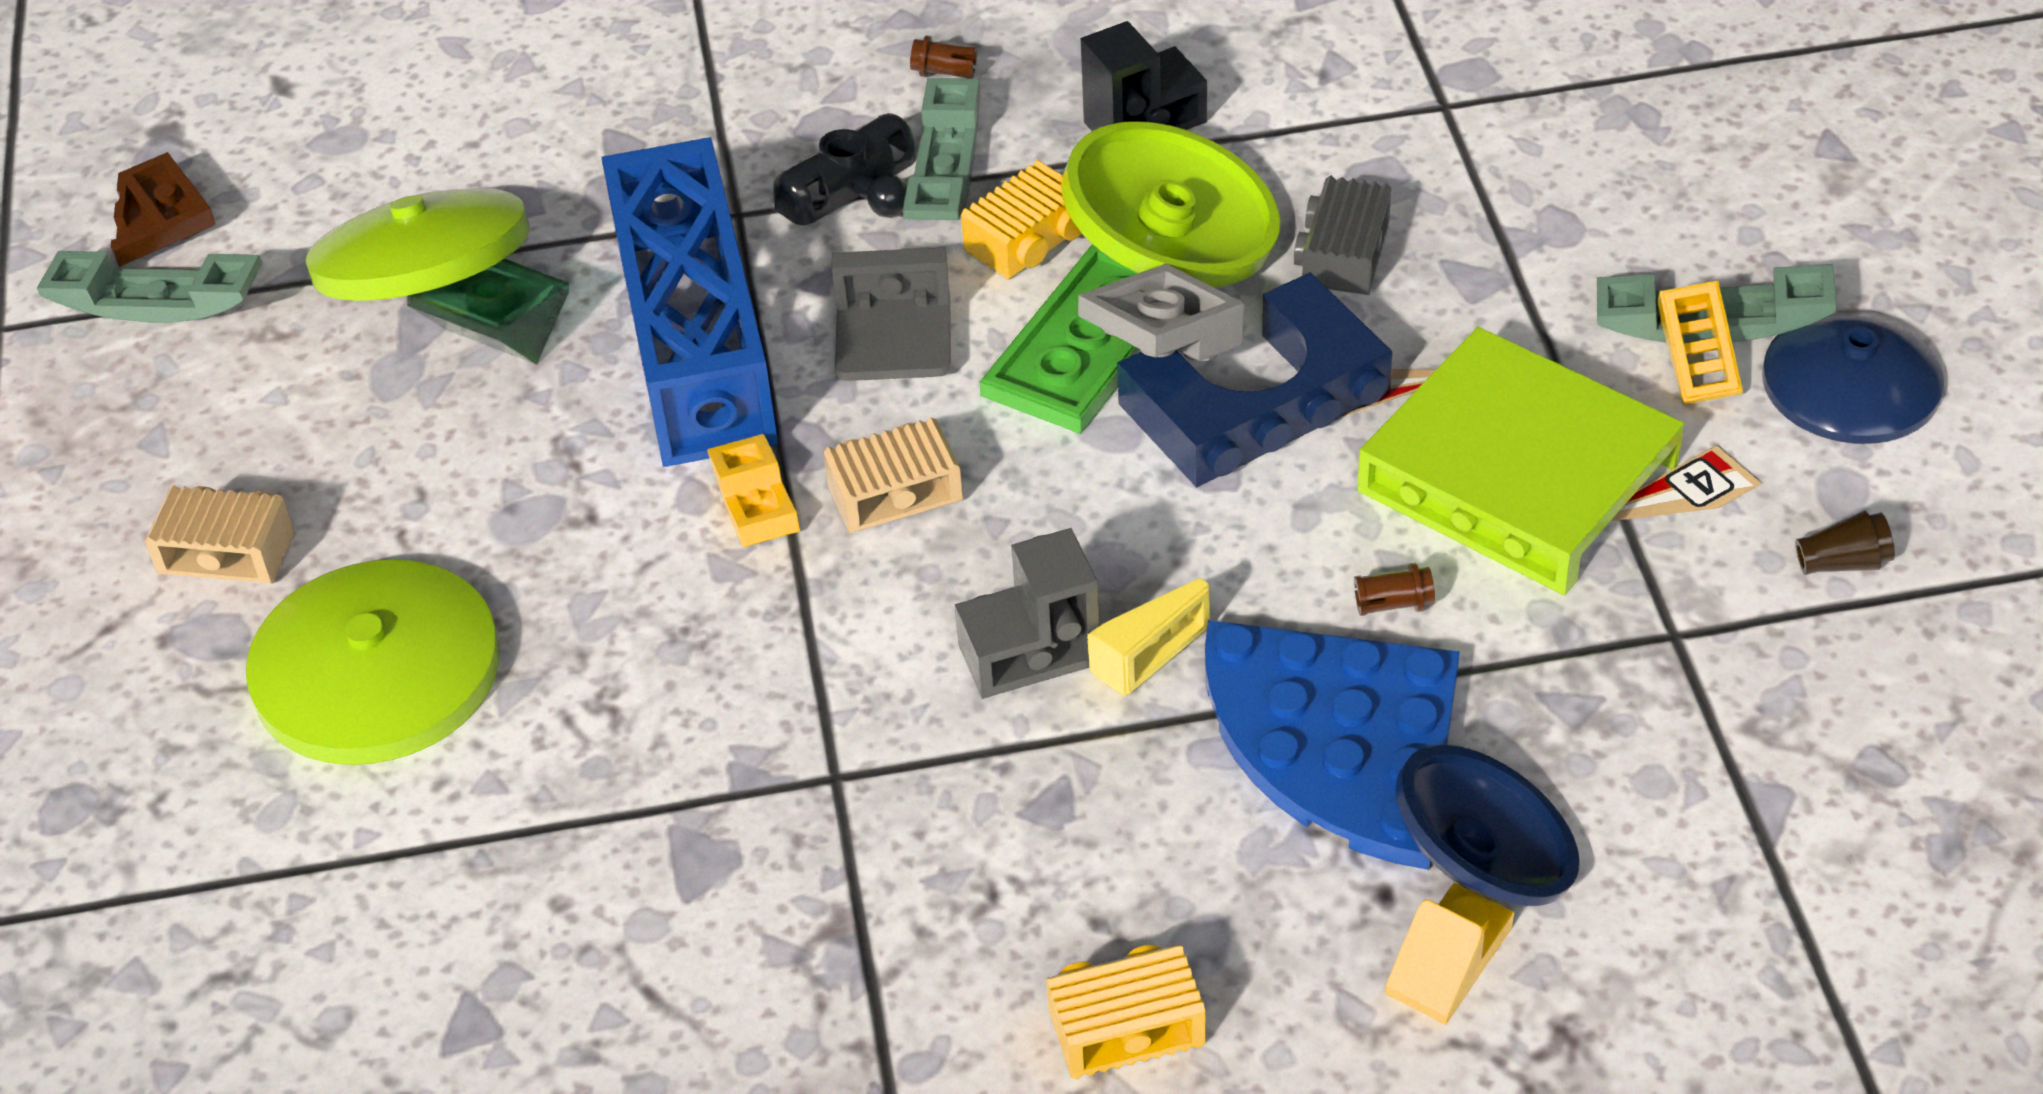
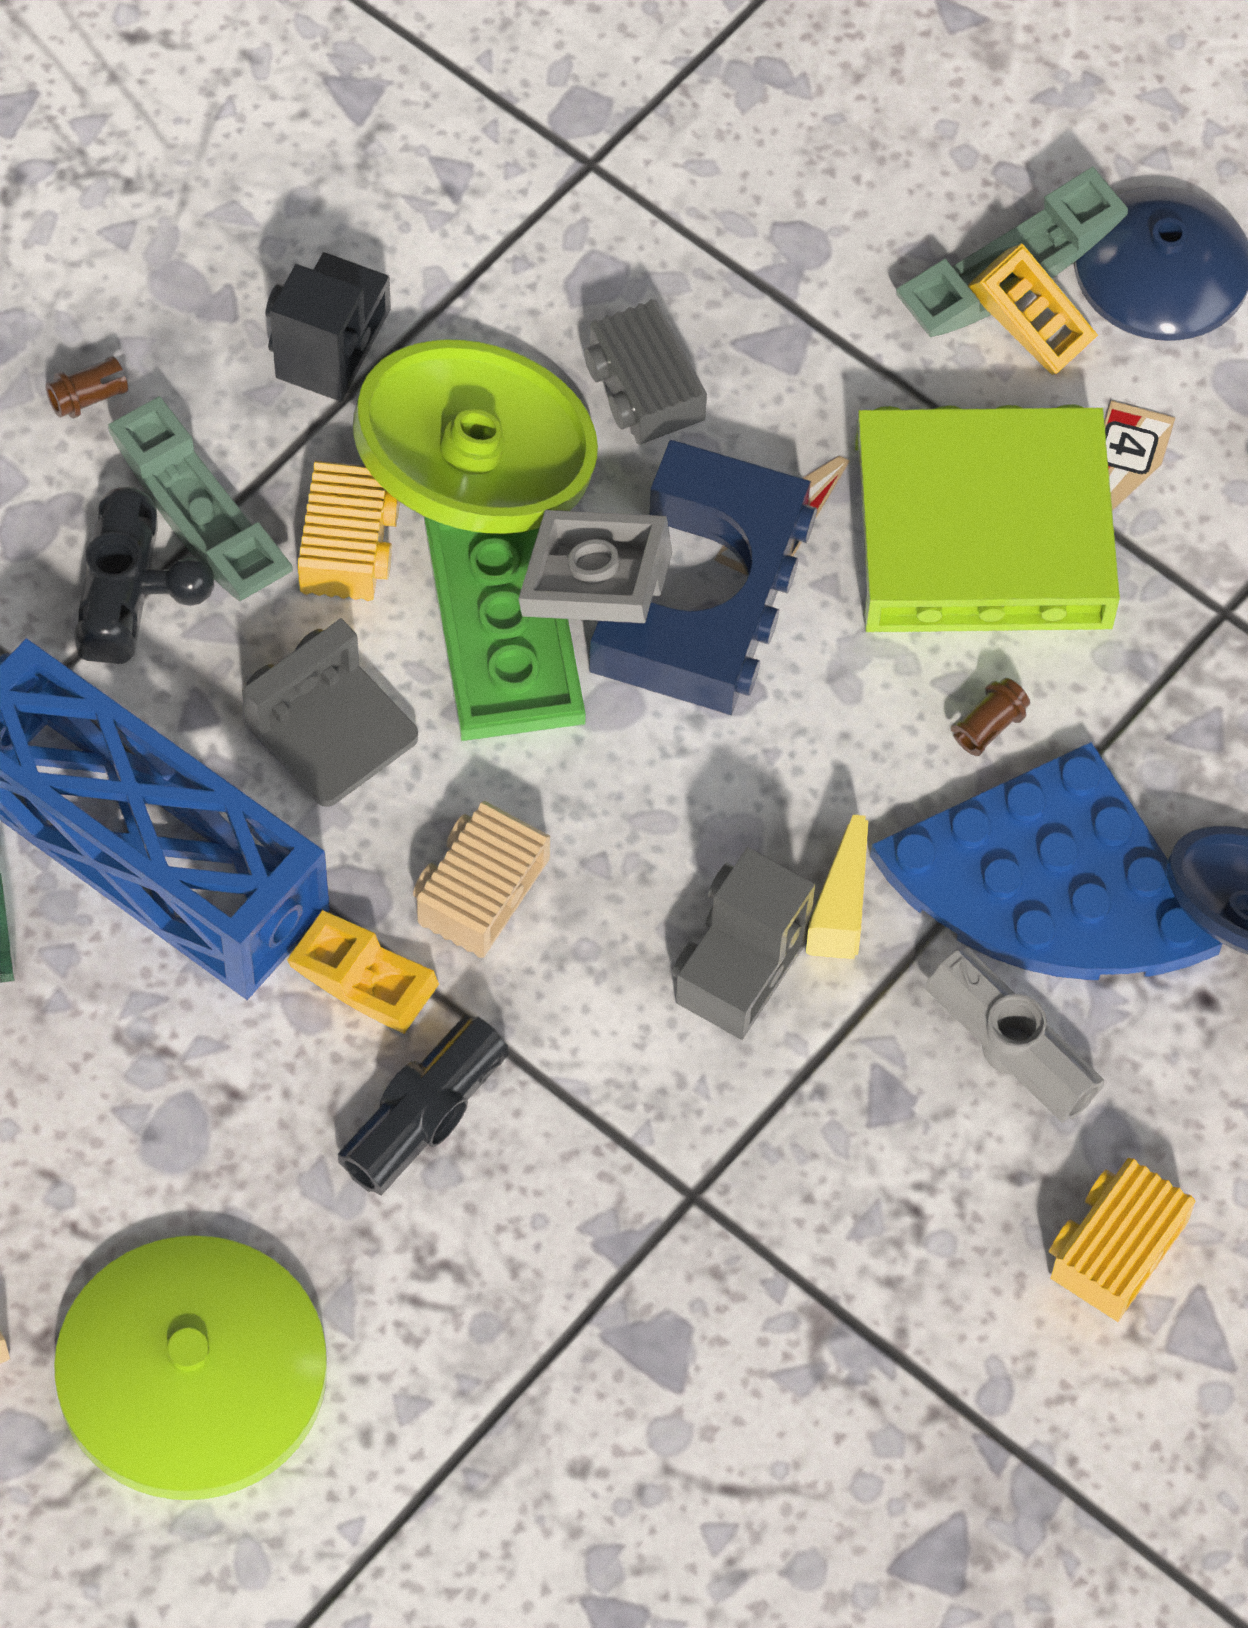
camera: 45 degrees left, 15 degrees up
(698, 590) = (423, 1104): none -> black piece
(1186, 812) = (1042, 1061): none -> light grey piece

